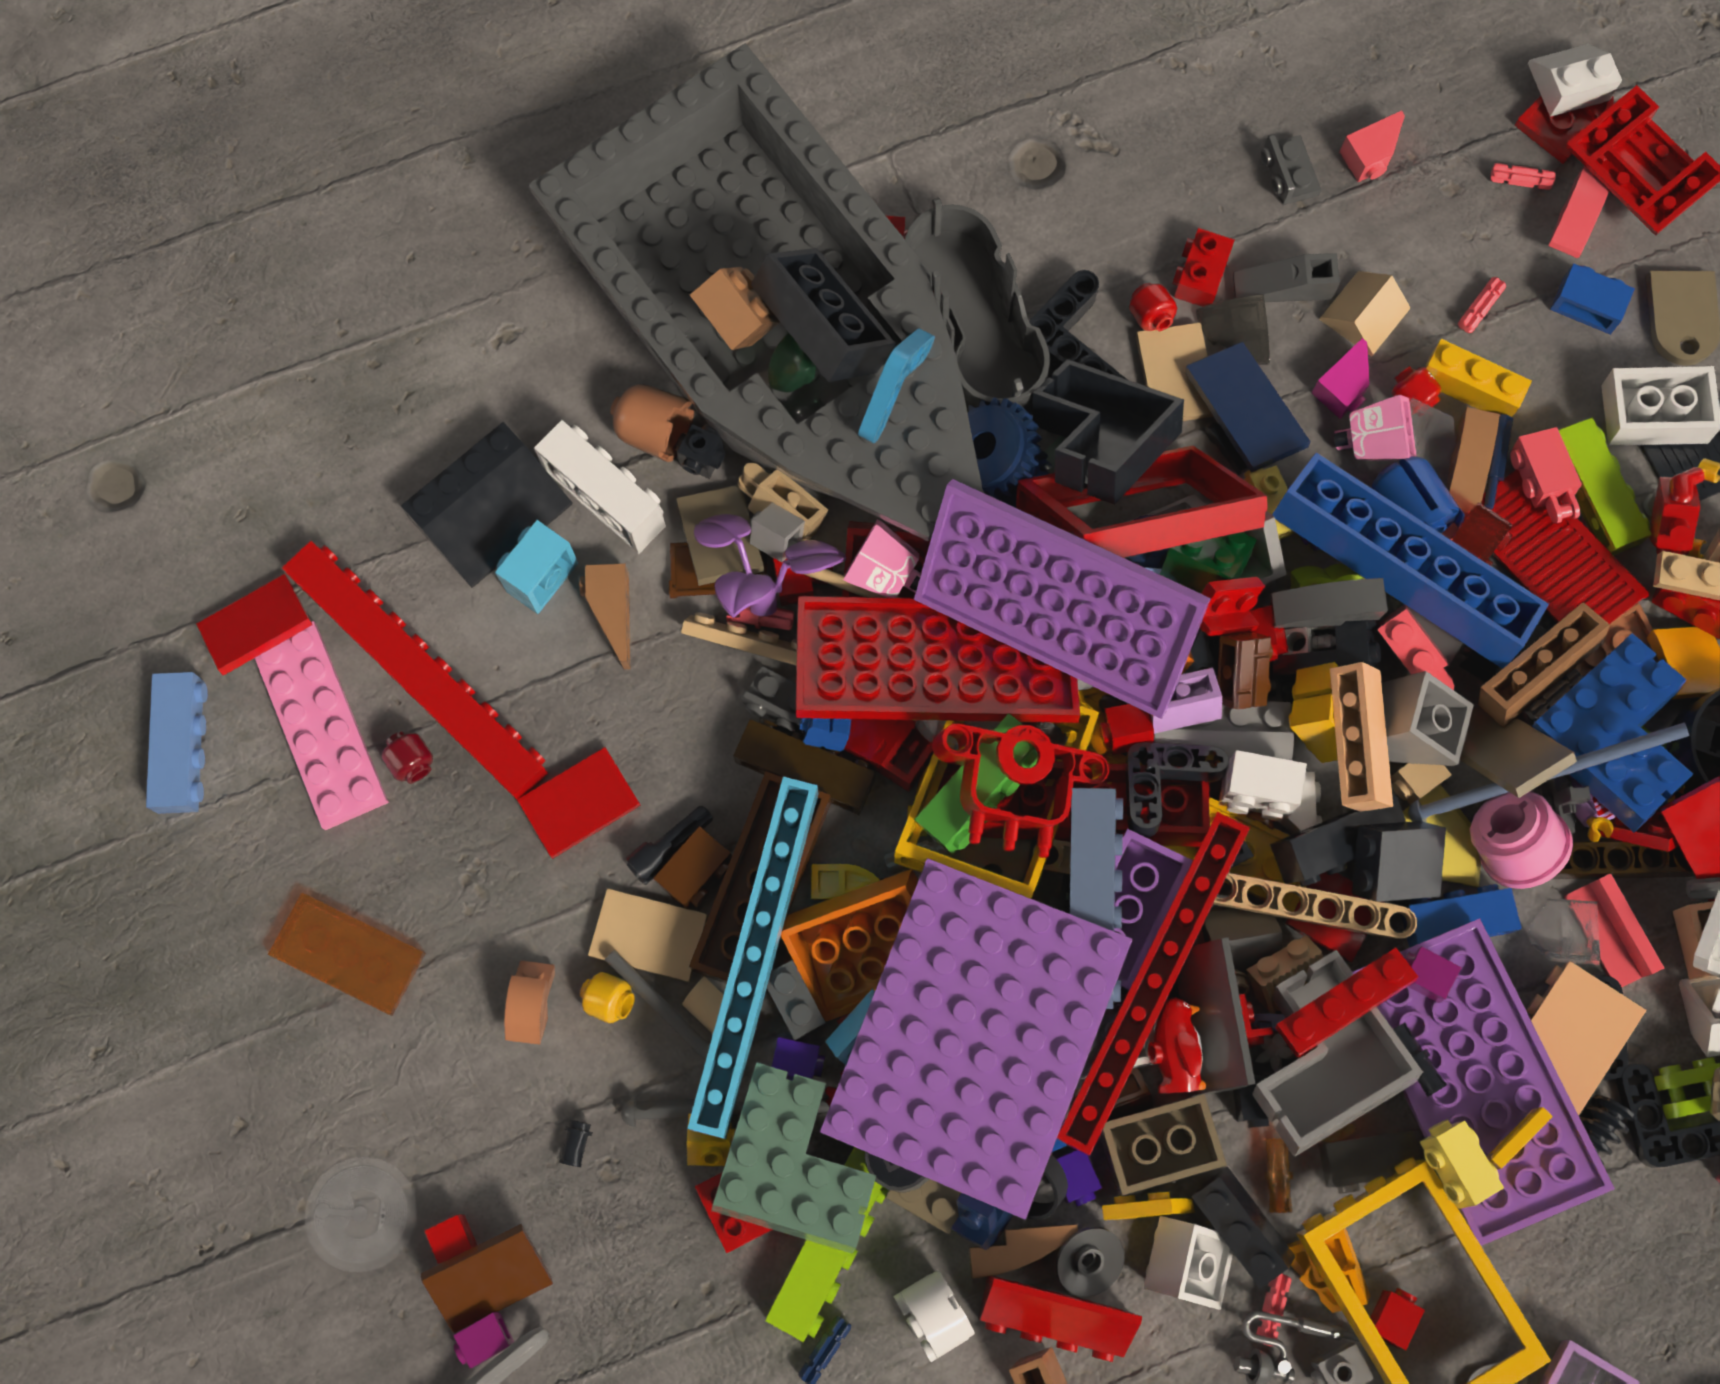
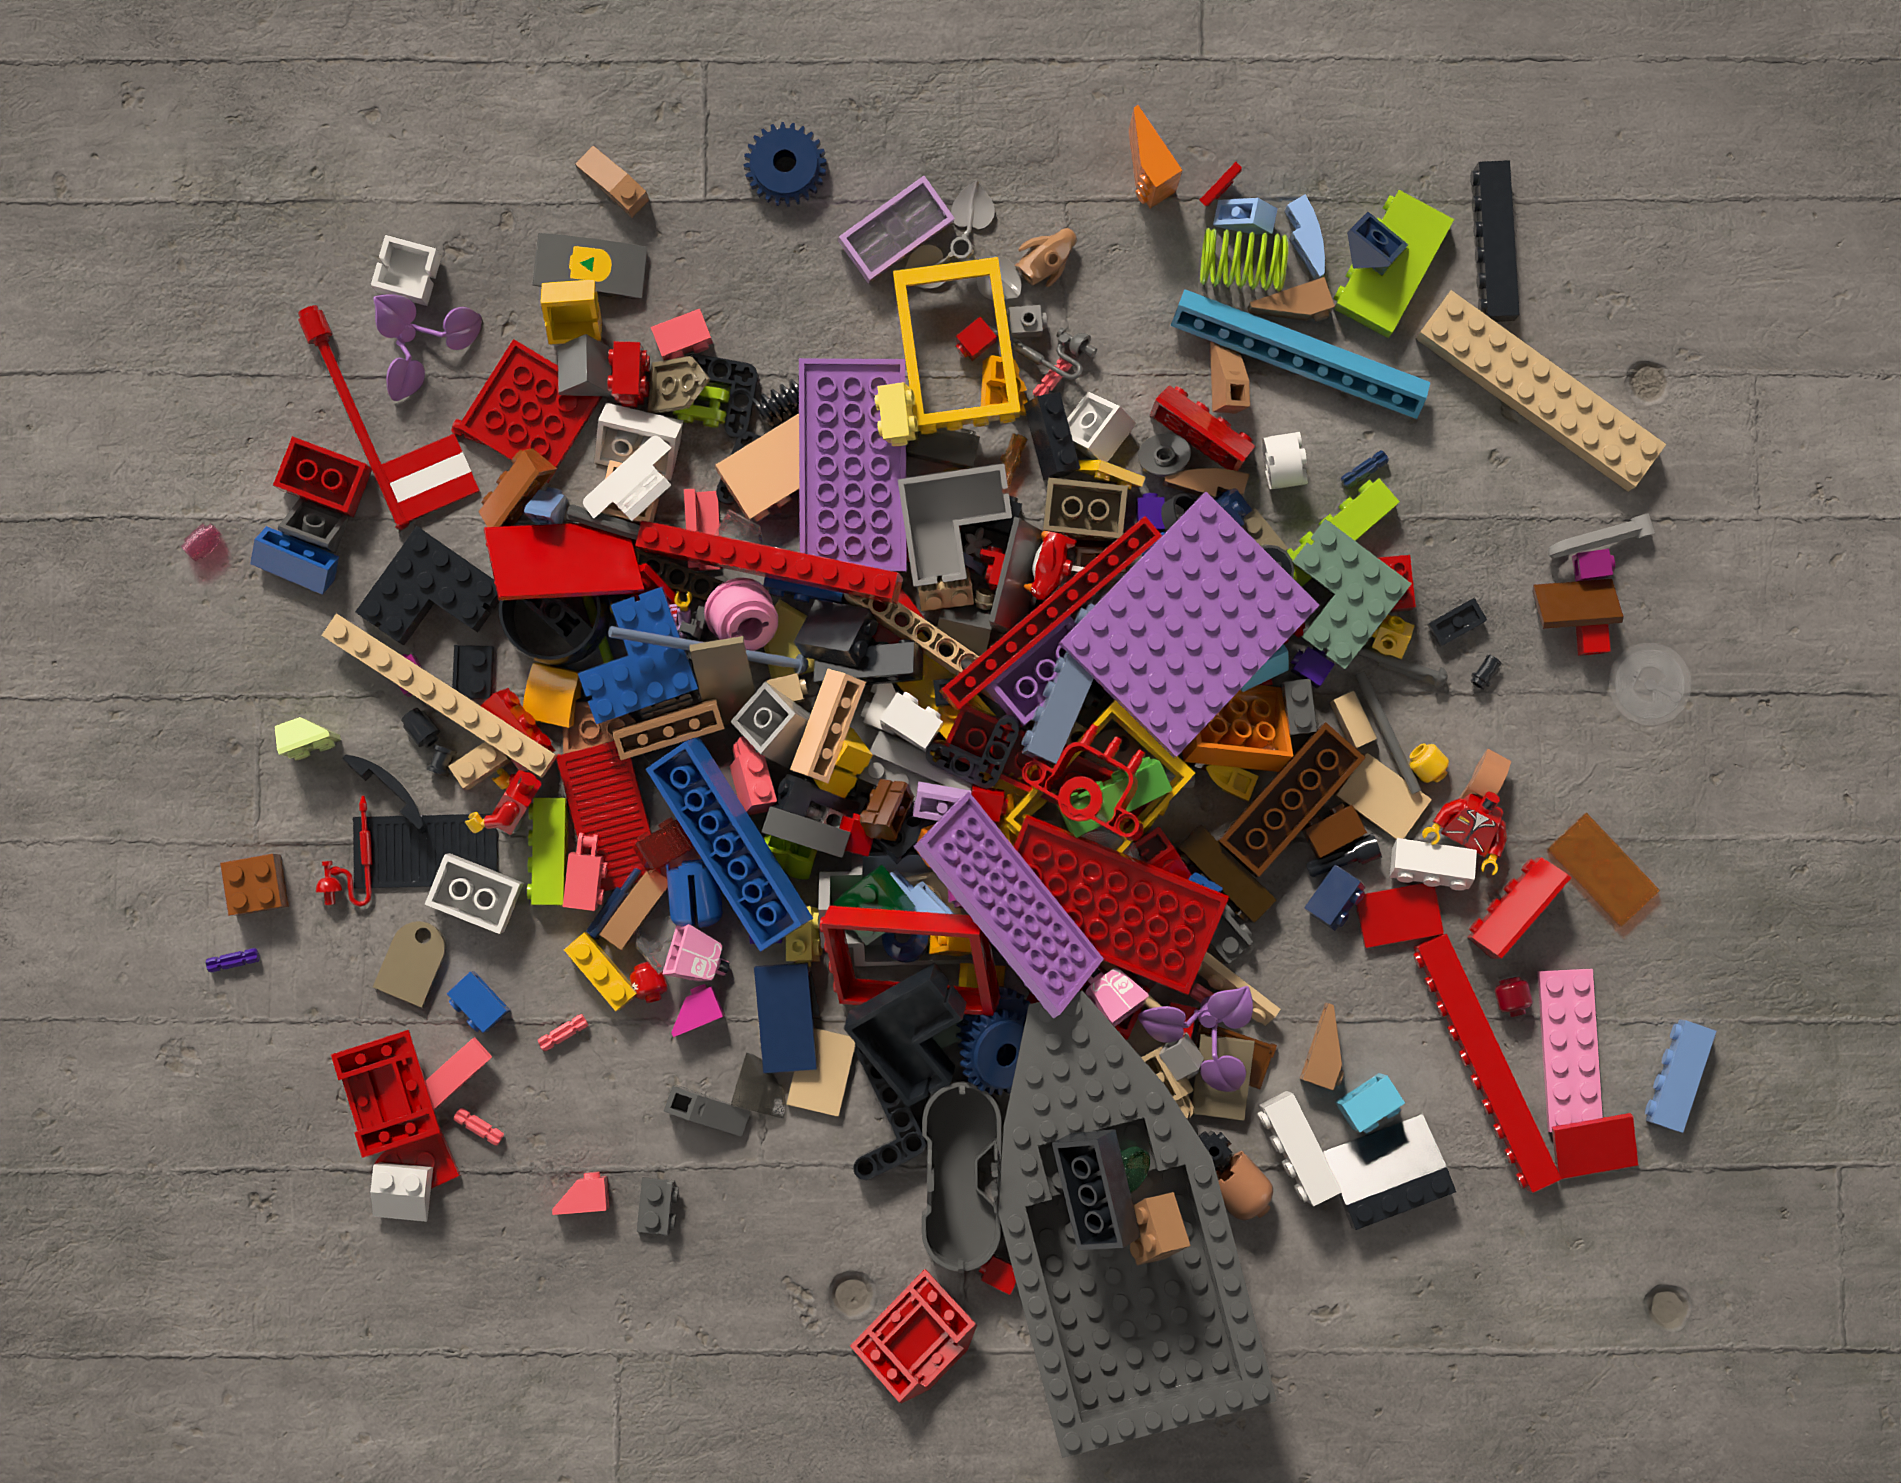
camera: 160 degrees left, 10 degrees up
(435, 861) = (1518, 907): none -> slope
(525, 940) = (1474, 824): none -> red torso
(558, 874) = (1433, 864): none -> white brick
(633, 1193) = (1457, 622): none -> black plate
(662, 787) = (1335, 898): none -> dark blue brick
(753, 959) = (1319, 742): medium azure brick -> none
(899, 365) = (1063, 1114): dark azure beam -> none
(951, 135) = (916, 1338): none -> red slope
(1153, 307) = (819, 1129): red head -> none
(1204, 267) = (765, 1147): red brick -> none
(1230, 606) = (880, 857): red bracket -> none
(1346, 1002) = (925, 546): red plate -> none
(1367, 309) = (654, 1063): tan slope -> none
(1430, 1079) = (891, 493): black pin -> none
(1434, 974) = (856, 545): magenta brick -> none
(1519, 1137) = (849, 415): yellow tile -> none
(1523, 910) = (769, 562): none -> red brick

